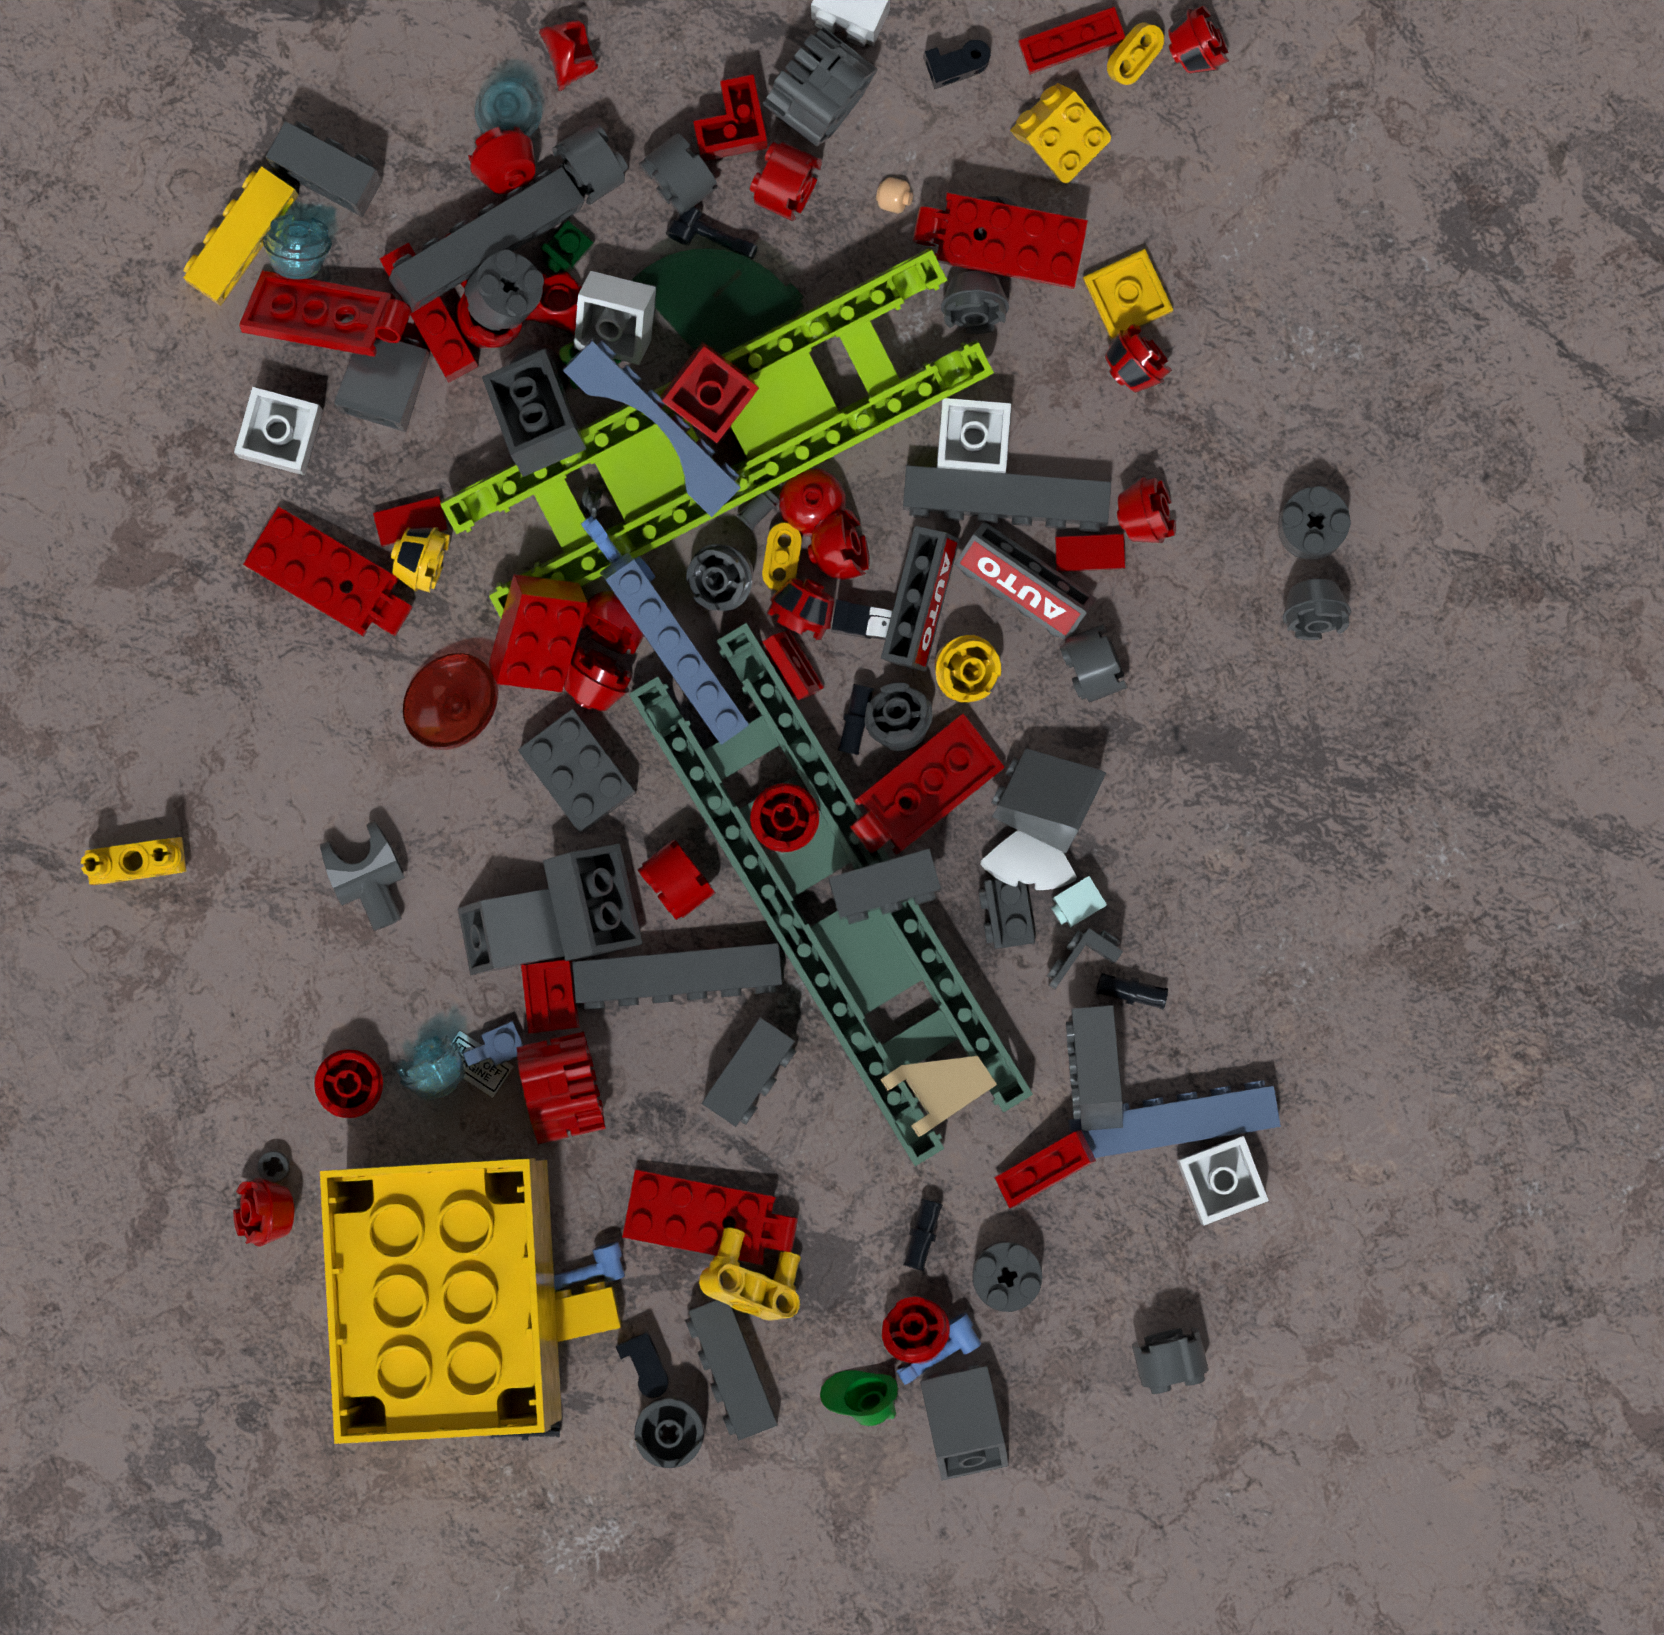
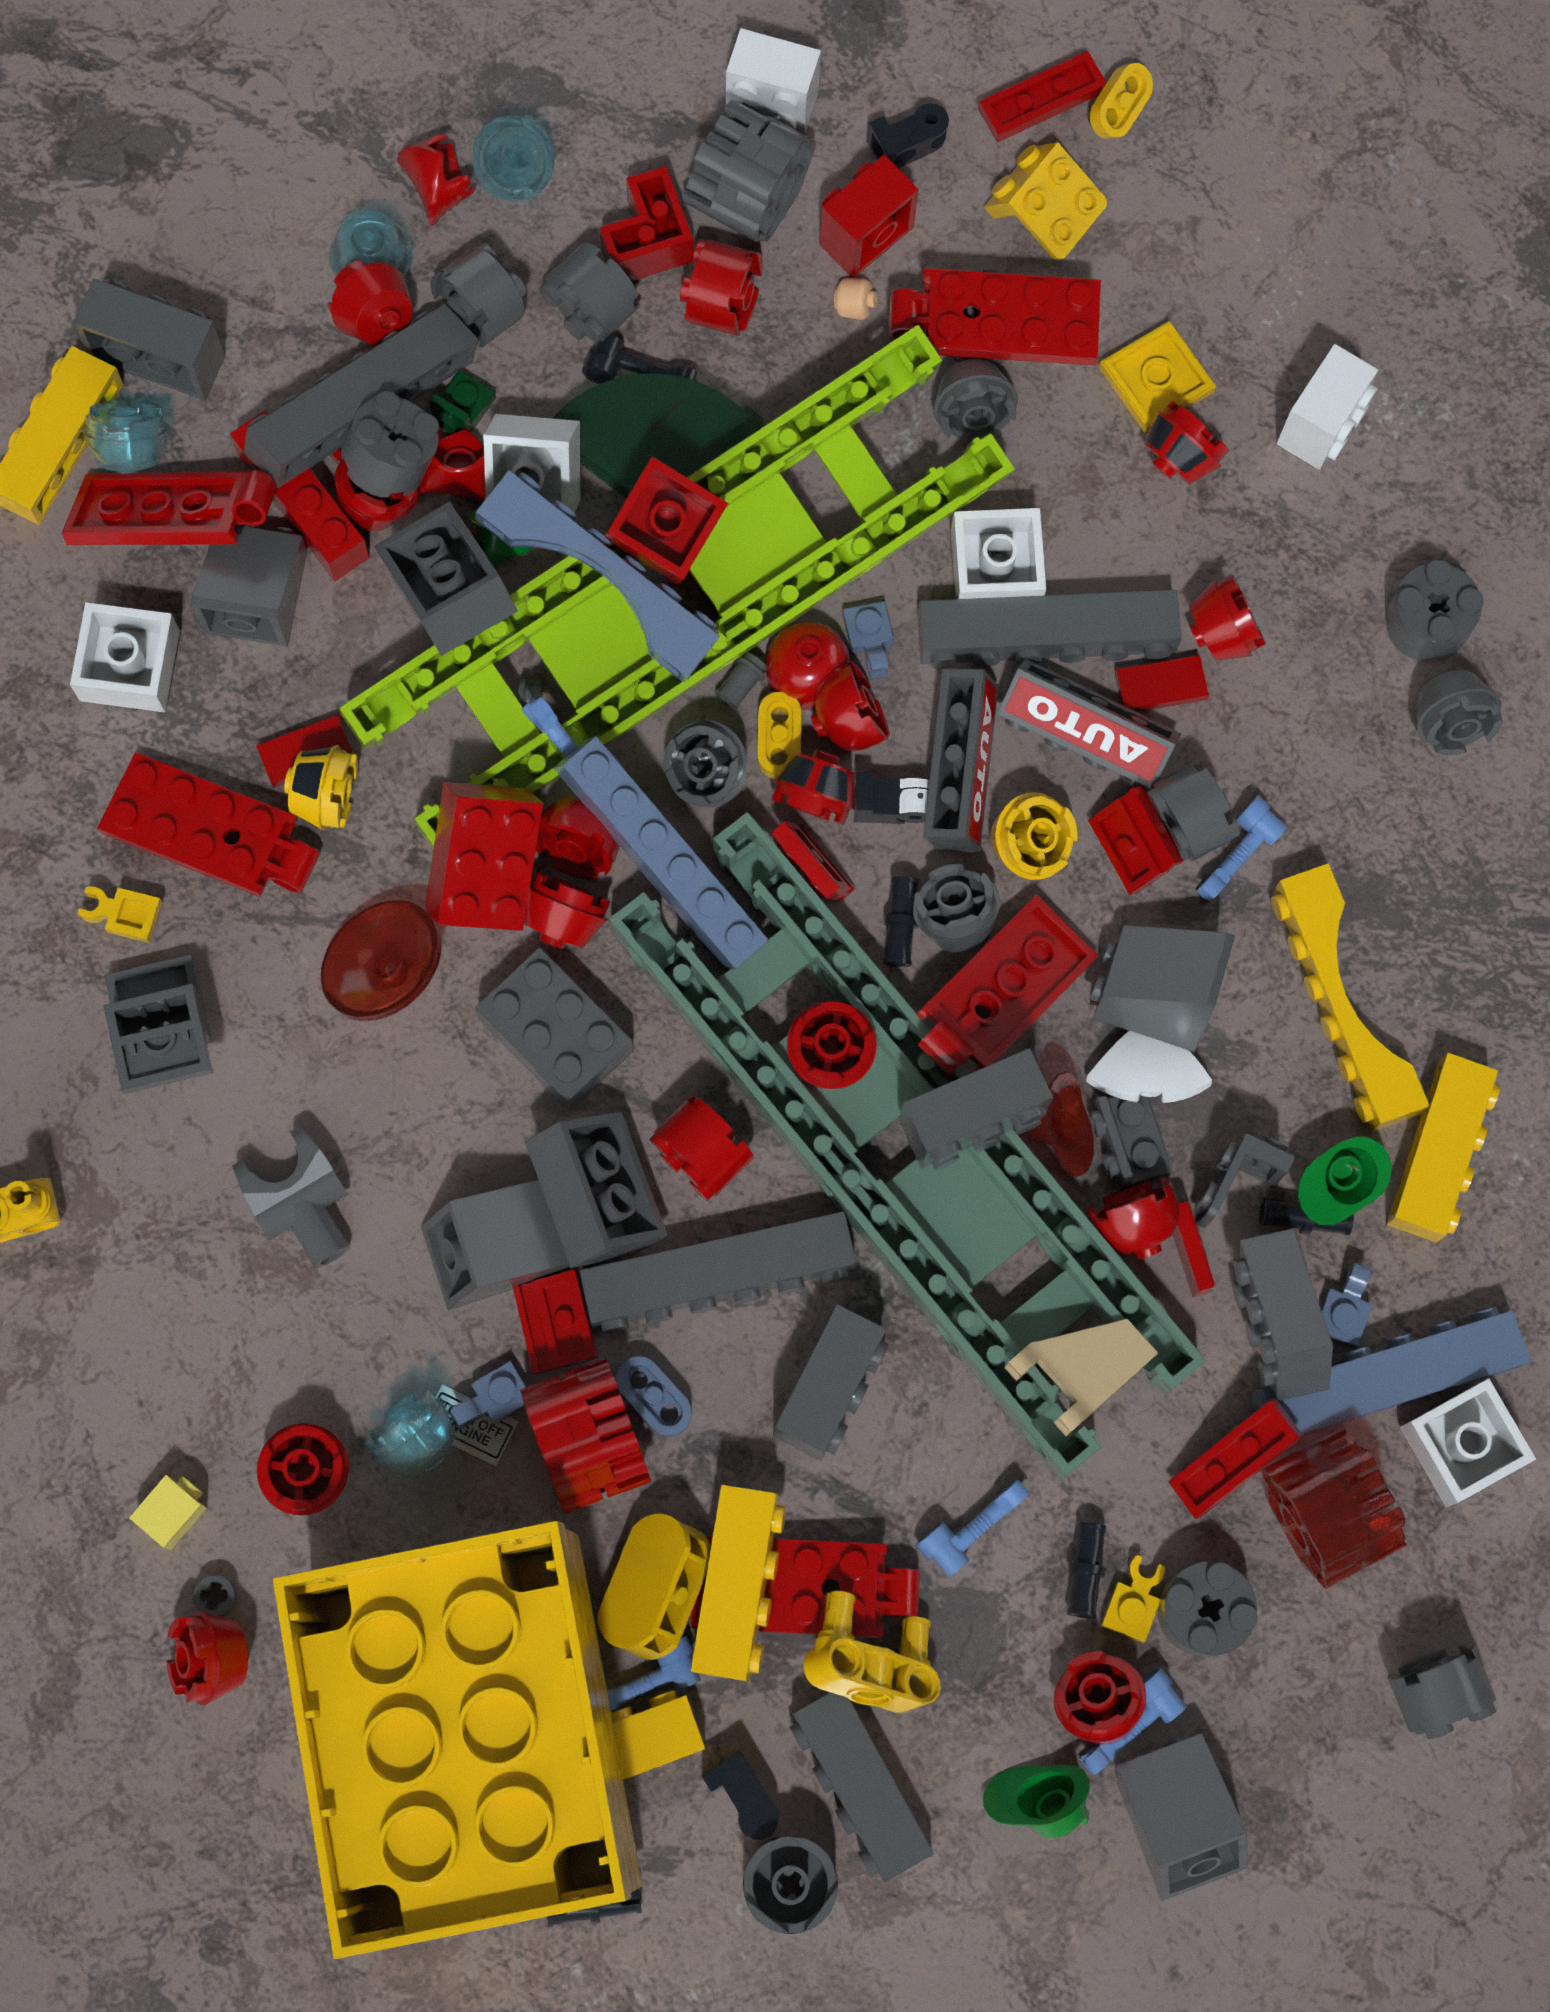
camera: 15 degrees left, 10 degrees down
(246, 1100) = (169, 1511): none -> light yellow brick
(260, 636) = (127, 915): none -> yellow plate
(275, 729) = (157, 1024): none -> dark grey bracket
(598, 1204) = (654, 1587): none -> yellow brick
(617, 1062) = (654, 1397): none -> sand blue plate
(631, 48) = (513, 158): none -> clear light blue cone
(659, 1211) = (736, 1584): none -> yellow brick
(822, 1205) = (949, 1548): none -> medium blue brick
(865, 480) = (870, 632): none -> sand blue plate
(911, 133) = (867, 215): none -> red brick
(952, 1266) = (1131, 1606): none -> yellow plate
(958, 897) = (1067, 1126): none -> clear red piece
(999, 977) = (1137, 1218): none -> red cylinder
(1038, 1004) = (1192, 1252): none -> red tile
(1047, 680) = (1135, 840): none -> red plate
(1077, 902) = (1219, 1112): light aqua brick -> none
(1111, 1216) = (1329, 1508): none -> clear red piece
(1148, 679) = (1261, 827): none -> medium blue brick
(1149, 1068) = (1344, 1311): none -> sand blue plate
(1162, 969) = (1344, 1180): none -> green piece
(1197, 42) = (1194, 75): red cone -> none
(1209, 897) = (1383, 1082): none -> yellow arch
(1245, 953) = (1443, 1148): none -> yellow brick
(1256, 343) = (1329, 408): none -> white brick

